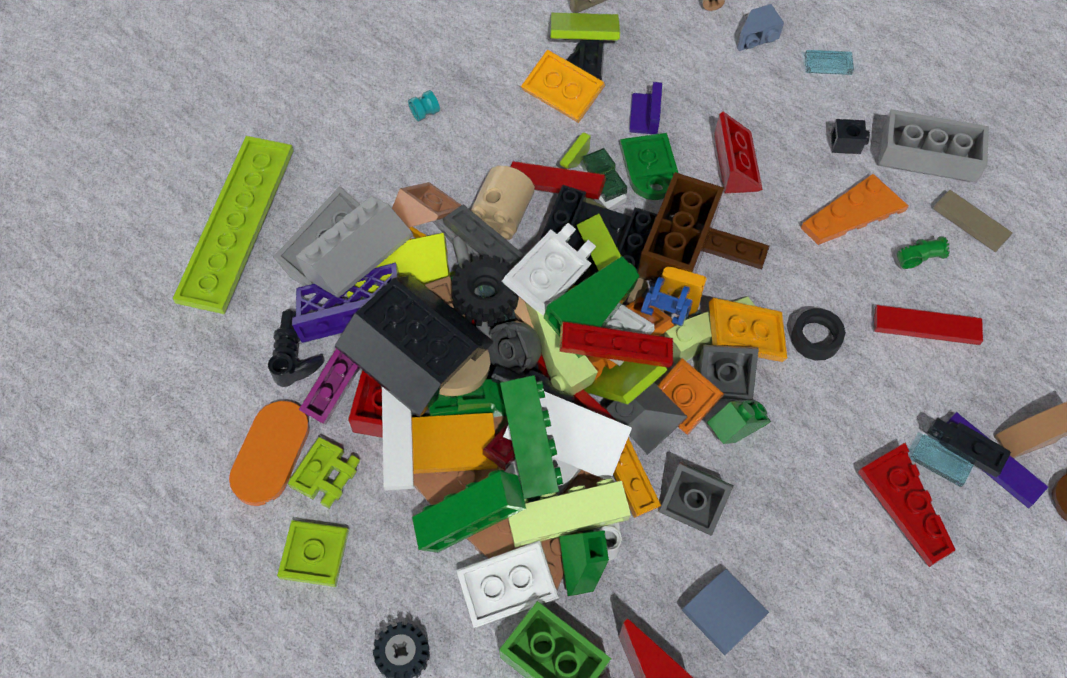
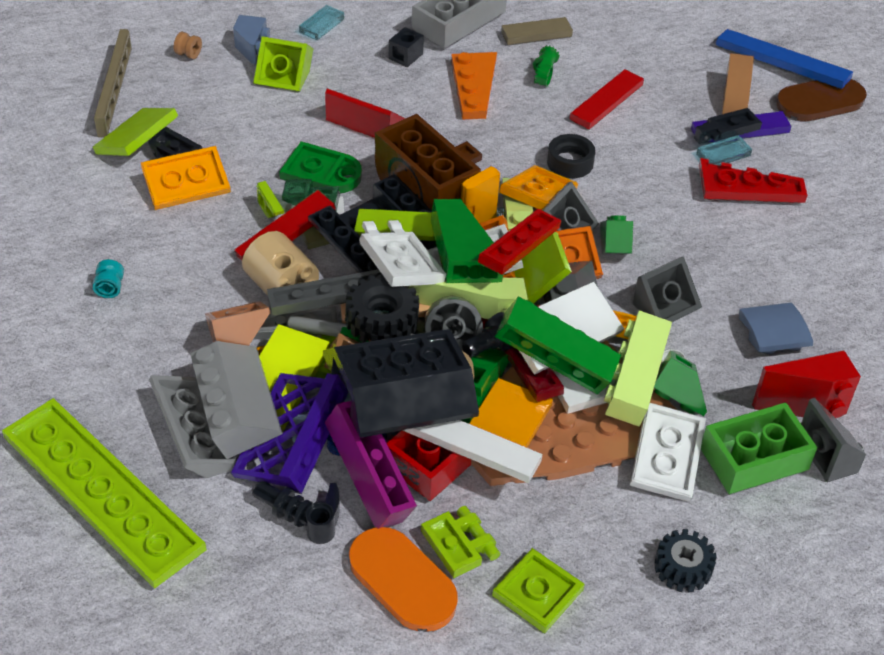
camera: 60 degrees left, 15 degrees down
(468, 511) = (594, 430): green brick -> none
(646, 111) = (266, 140): dark purple panel -> none
(679, 306) = (492, 205): blue piece -> none
(746, 68) = (283, 64): none -> lime slope

